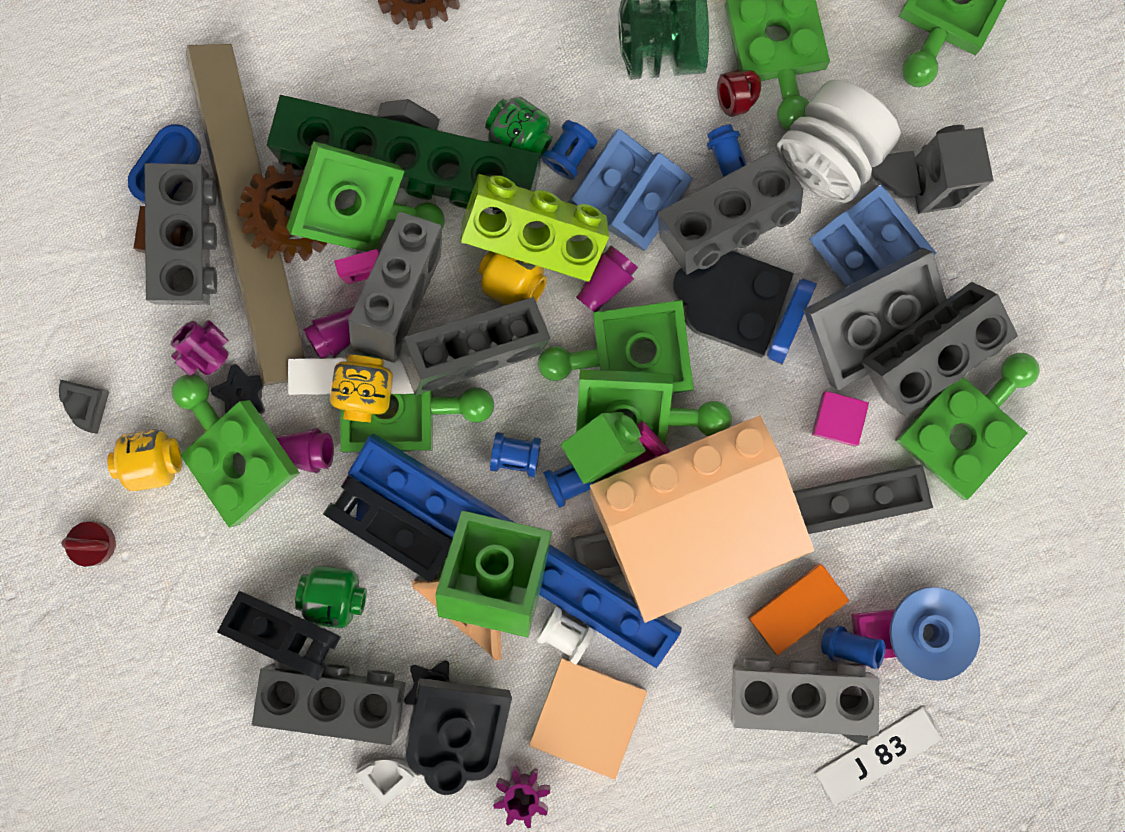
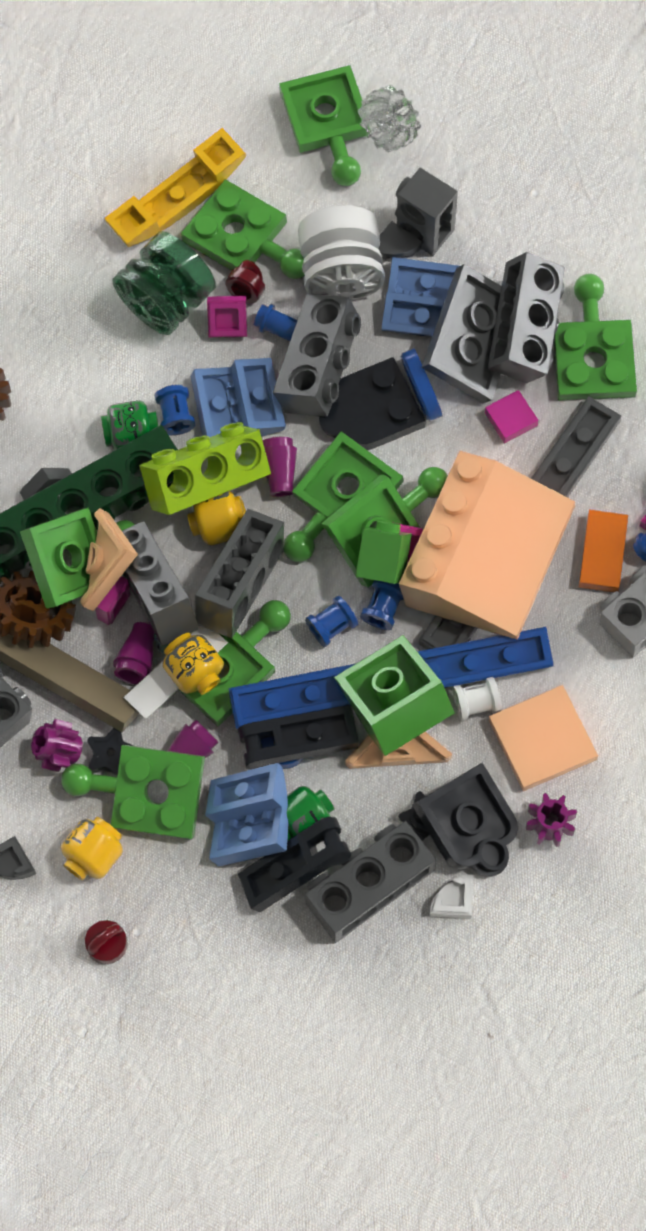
camera: 45 degrees left, 15 degrees down
(286, 556) = (248, 815): none -> medium blue slope
(376, 231) = (106, 559): none -> light nougat tile
(691, 107) = (227, 316): none -> dark pink tile
(1003, 55) = (389, 118): none -> clear gear

